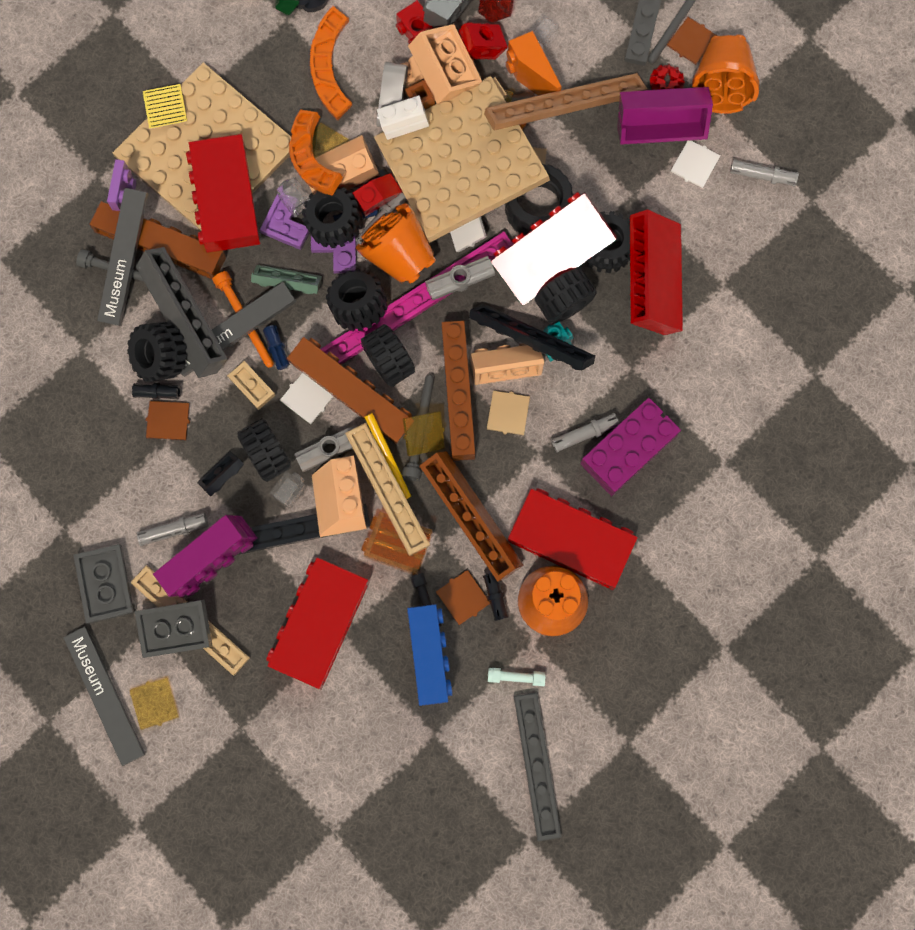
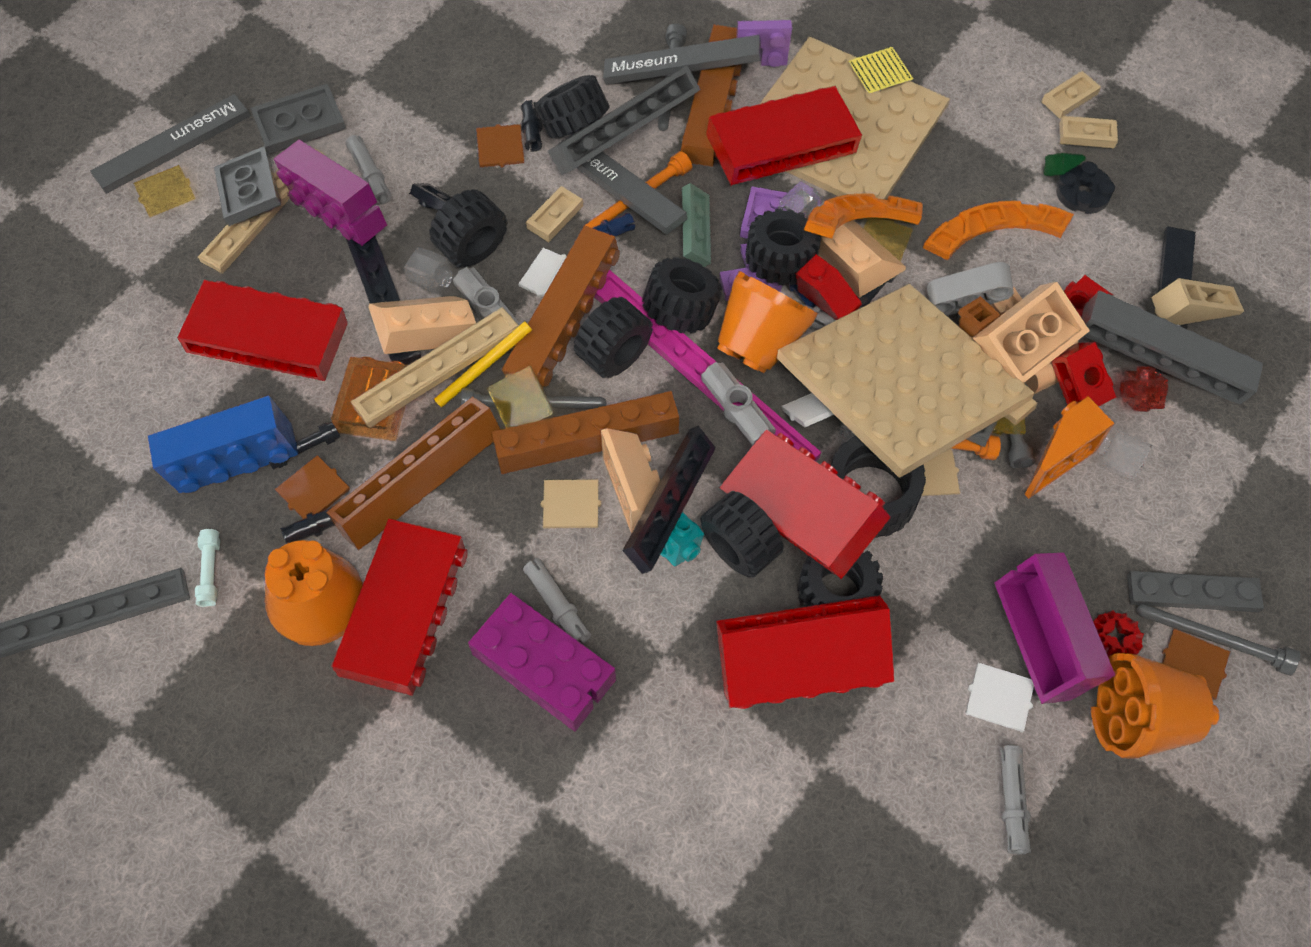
camera: 80 degrees right, 15 degrees down
(403, 117) = (938, 297): white brick -> none
(561, 102) = (1027, 485): medium nougat plate -> none

